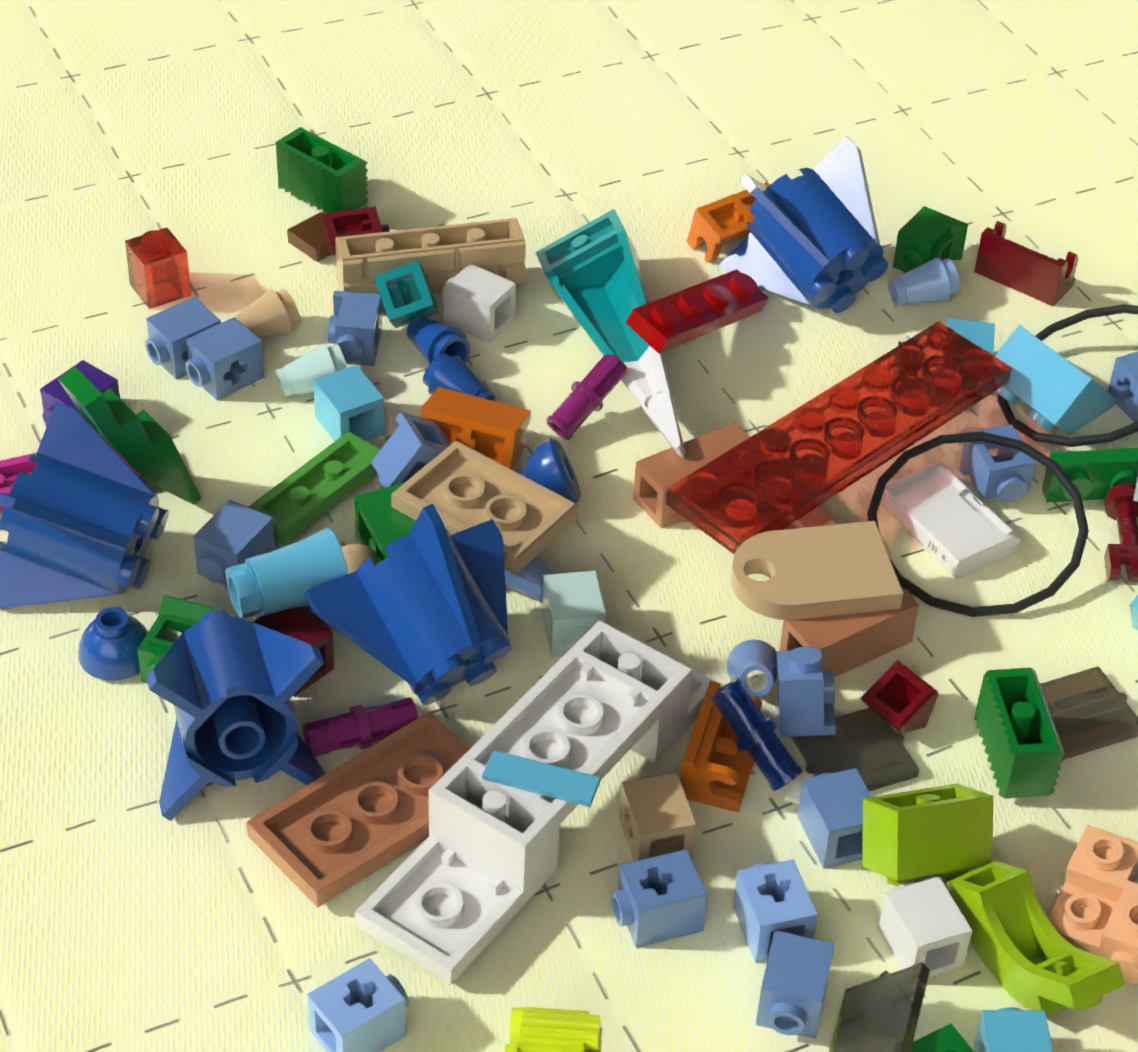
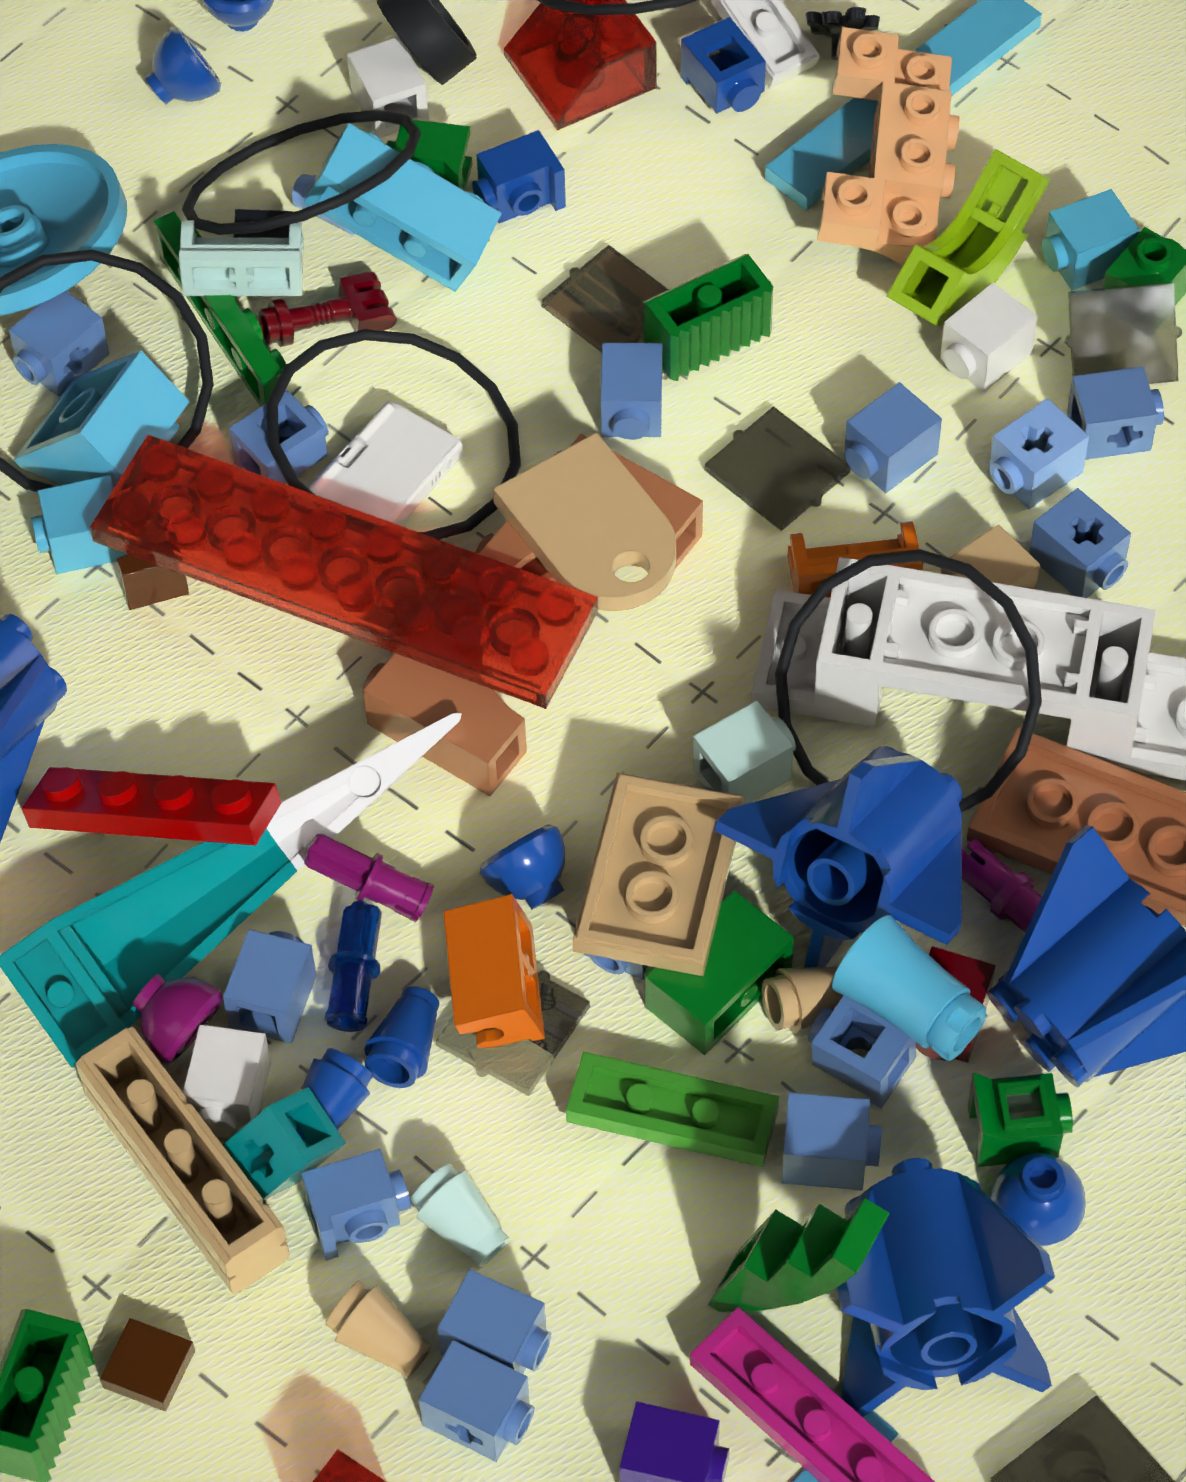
camera: 110 degrees left, 15 degrees up
(349, 403) = (513, 1137): medium azure brick -> none
(351, 223) = (154, 1287): dark red bracket -> none
(408, 449) = (590, 1004): medium blue brick -> none
(525, 382) = (354, 967): none -> clear blue axle
(535, 338) = (270, 985): none -> medium blue brick
(536, 286) = (174, 1012): none -> magenta brick
(541, 778) = (1067, 626): medium azure window -> none
(552, 715) = (941, 562): none -> black piece
(752, 656) = (742, 559): medium blue cone -> none
(755, 734) = (841, 522): clear blue pin -> none
(805, 694) = (749, 495): medium blue brick -> none
(901, 698) = (701, 435): dark red slope -> none
(927, 833) = (893, 344): lime brick -> none
(959, 667) = (631, 390): none -> medium blue brick

